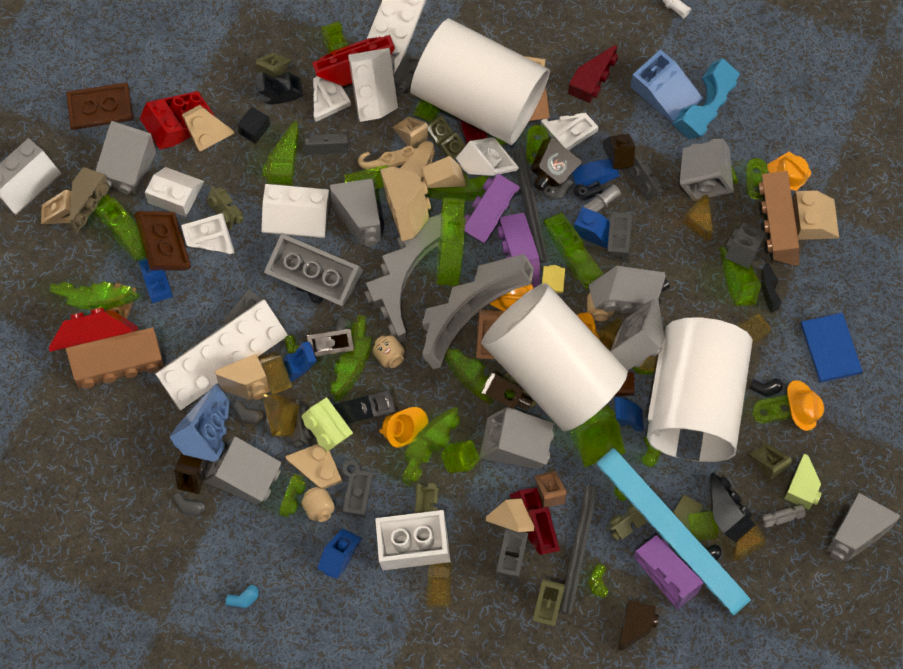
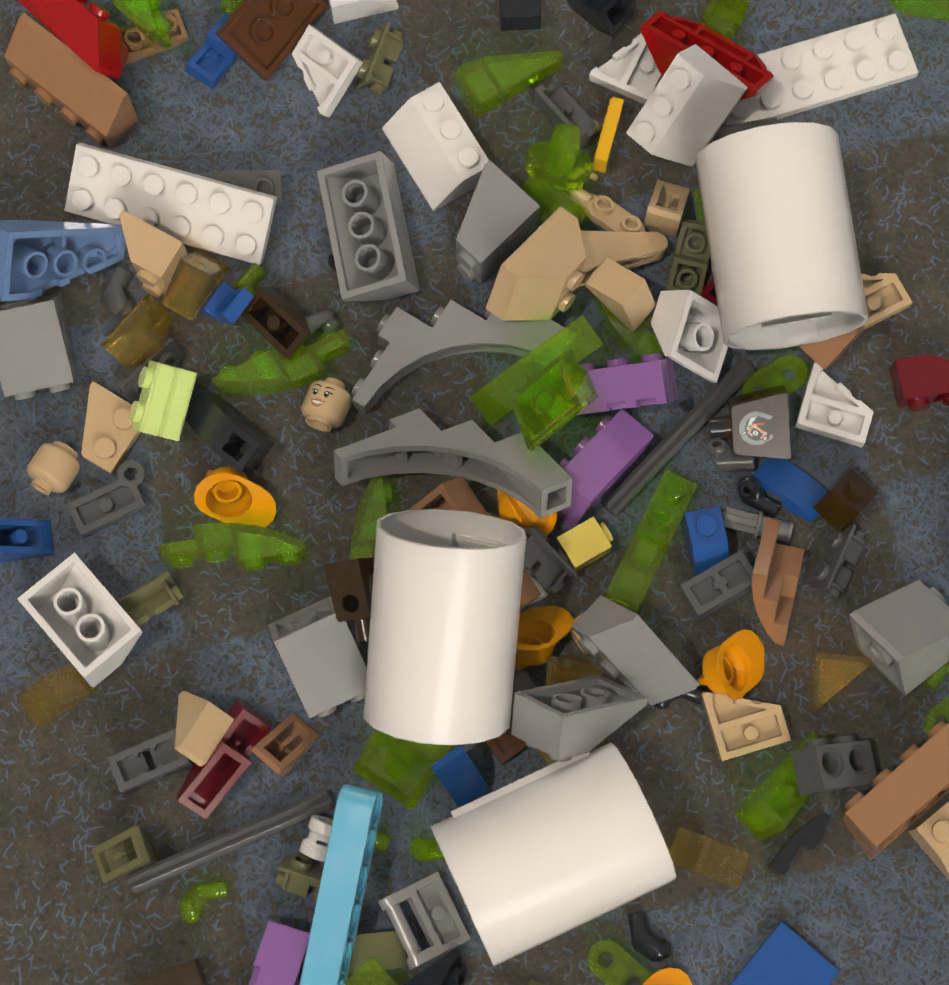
camera: 55 degrees right, 10 degrees up
(289, 502) = (57, 423): clear neon green plate -> none
(350, 160) = (560, 160): none -> clear neon green tile
(353, 131) = (608, 134): none -> yellow tile
(460, 456) = (247, 599): clear neon green panel -> none
(477, 239) = (551, 400): none -> clear neon green slope
(610, 501) = (317, 842): none -> white wheel
(638, 207) = (775, 581): none -> medium nougat slope
(663, 256) = (734, 665): none -> light orange piece
(686, 474) = (434, 914): none -> light grey plate
(694, 273) = (743, 724): none -> tan wing

